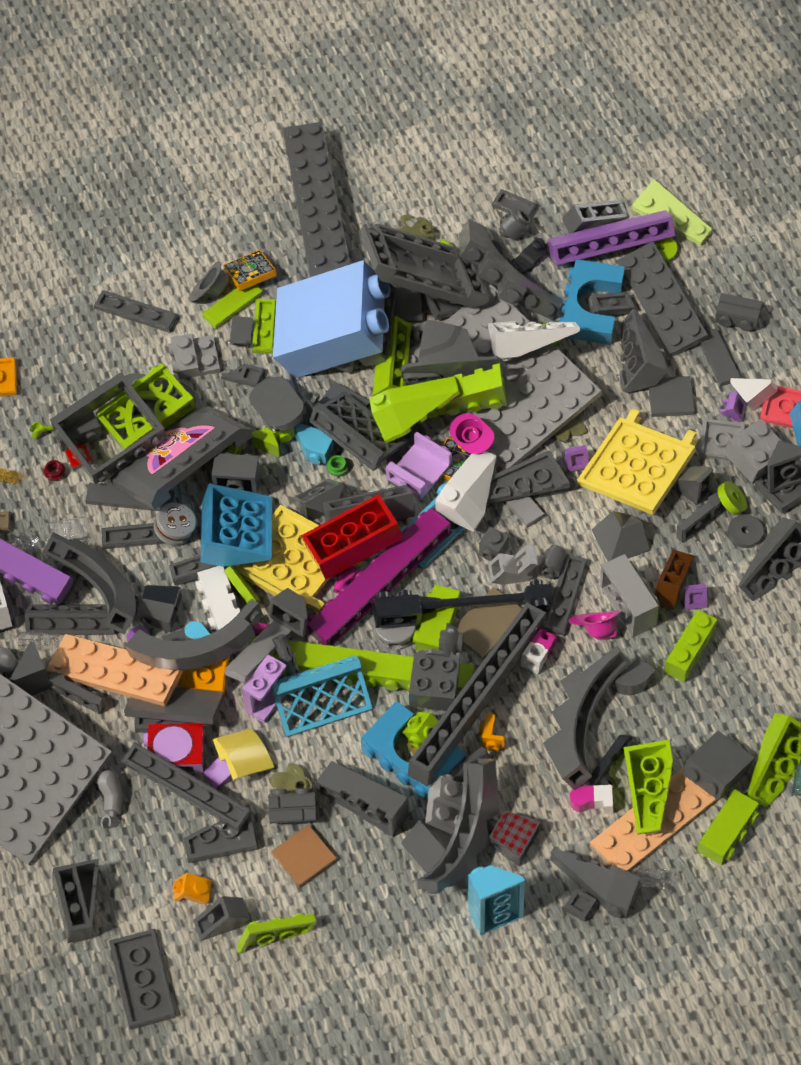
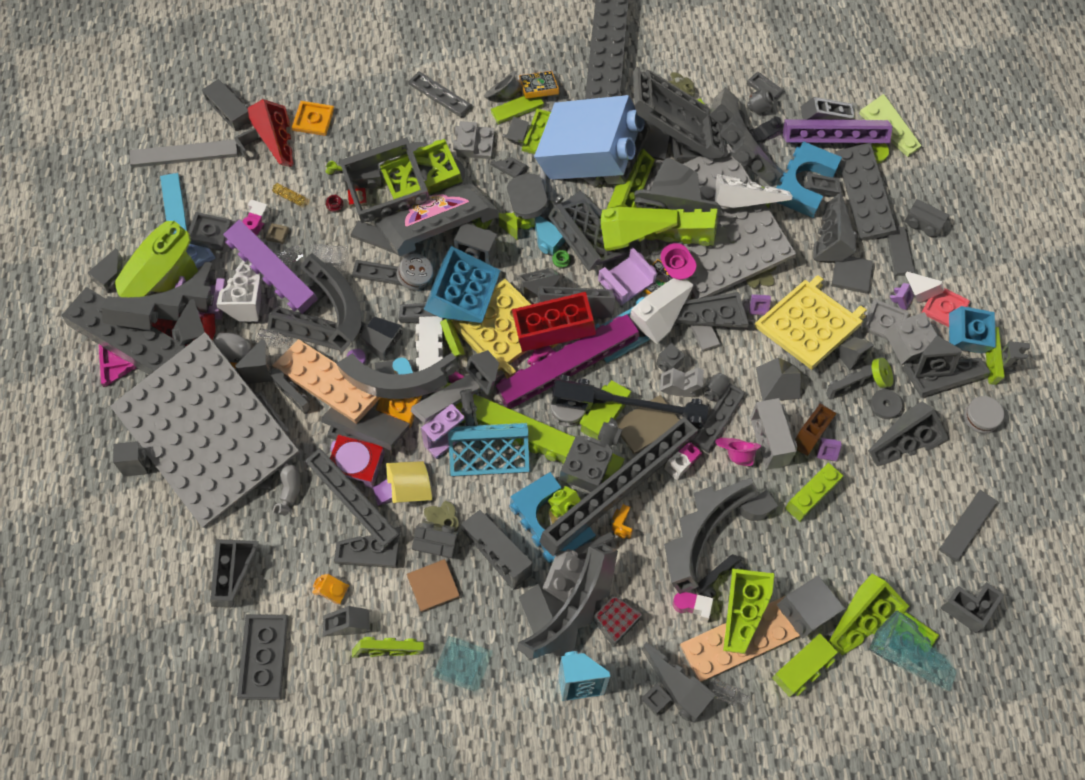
camera: 10 degrees right, 5 degrees up
(359, 927) = (460, 663): none -> clear light blue tile

